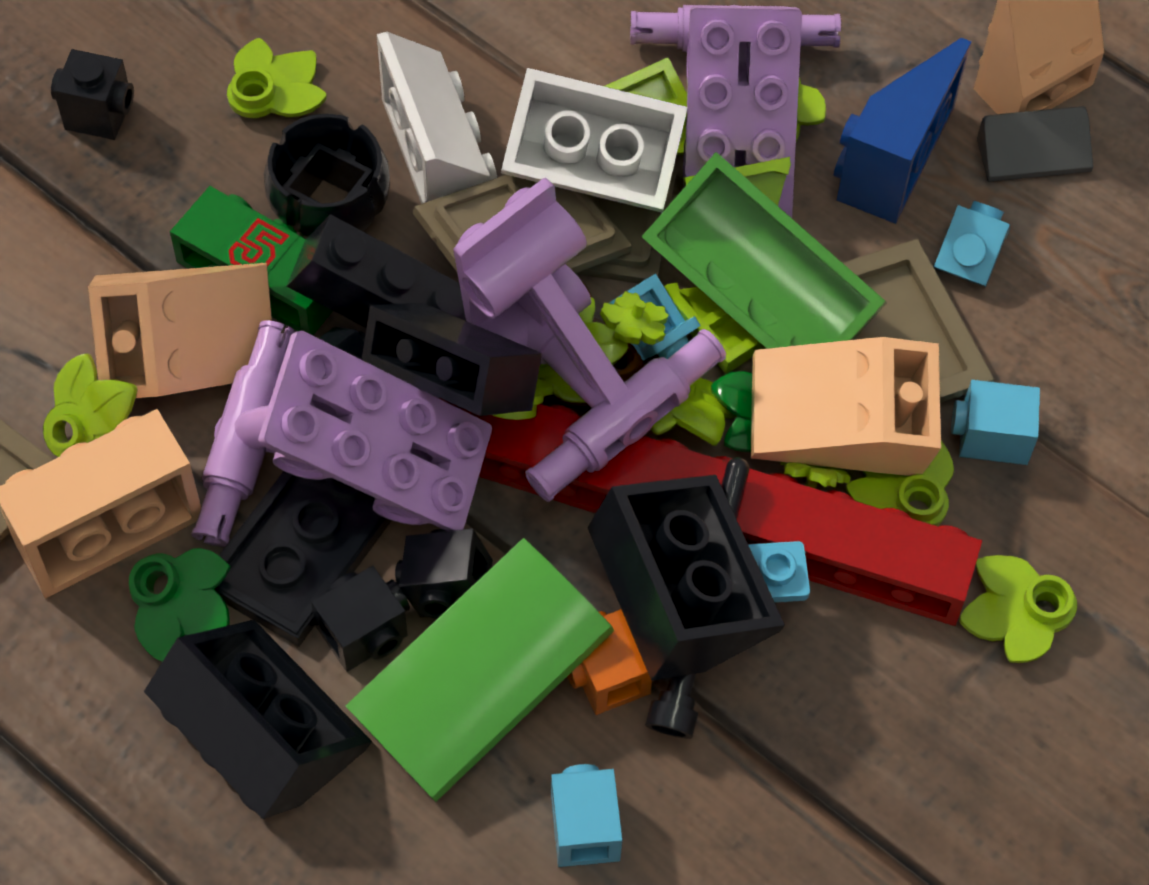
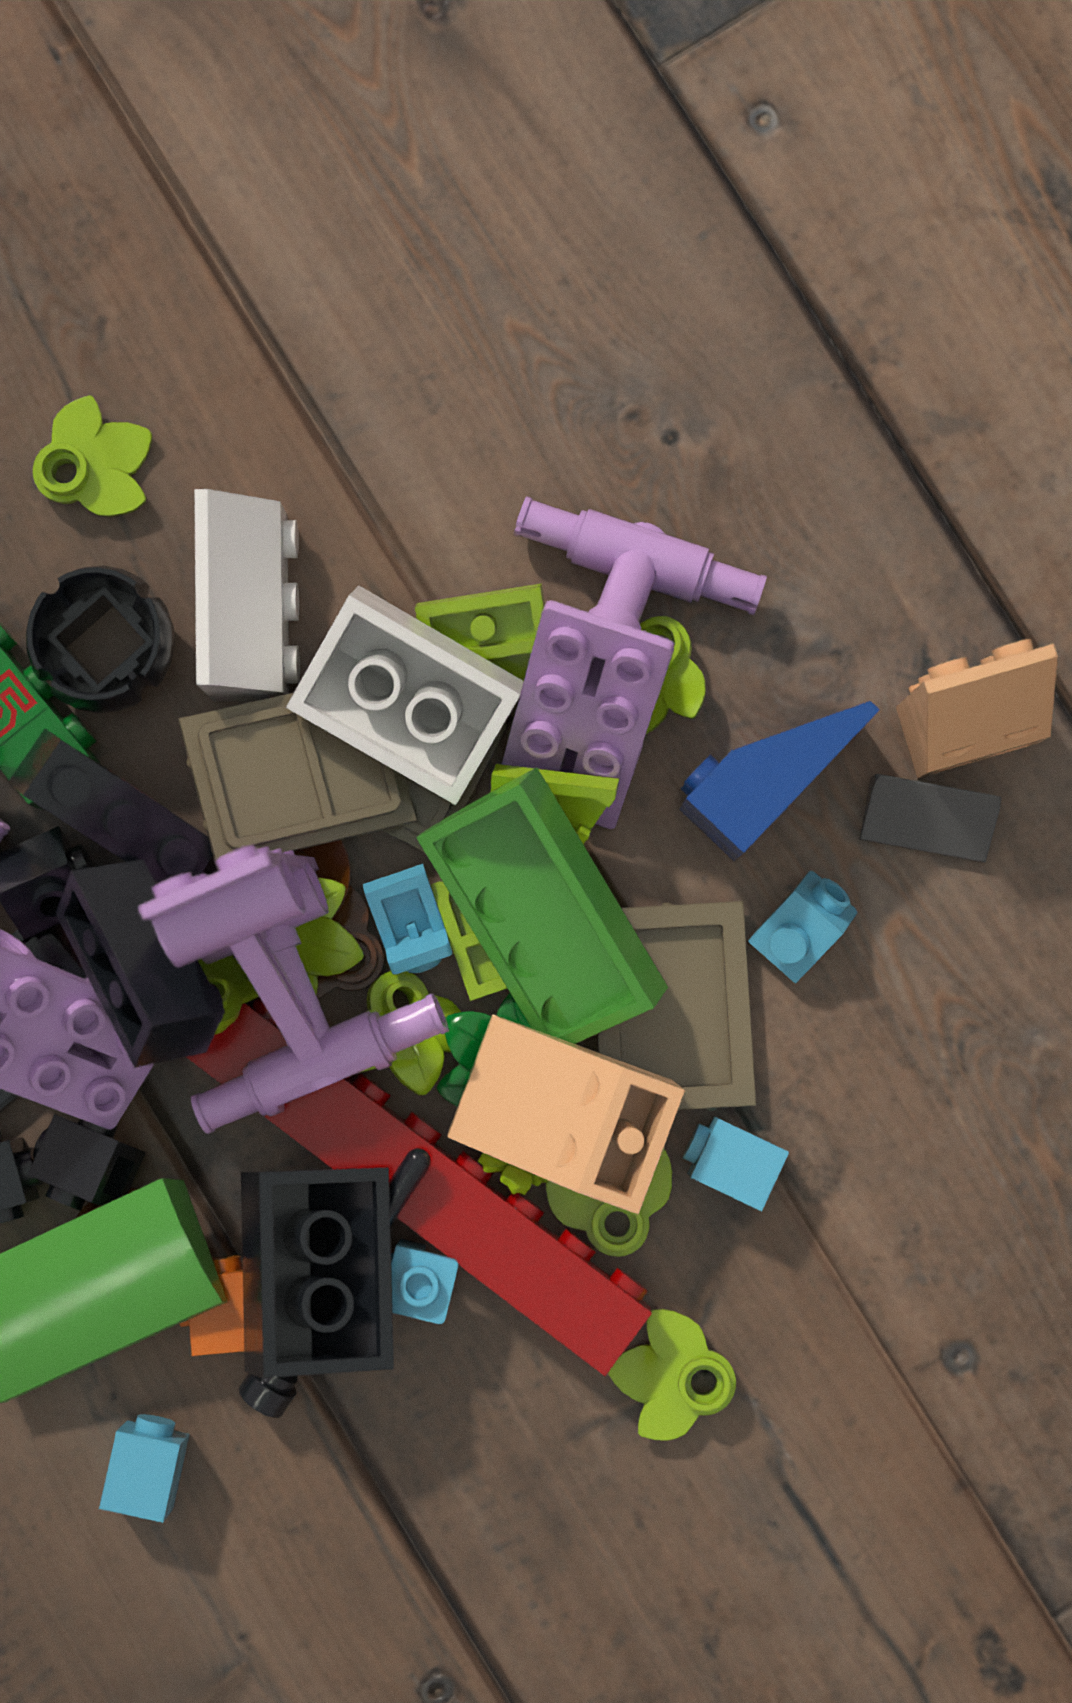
camera: 25 degrees right, 25 degrees up
(635, 319) = (379, 931): lime plant -> none

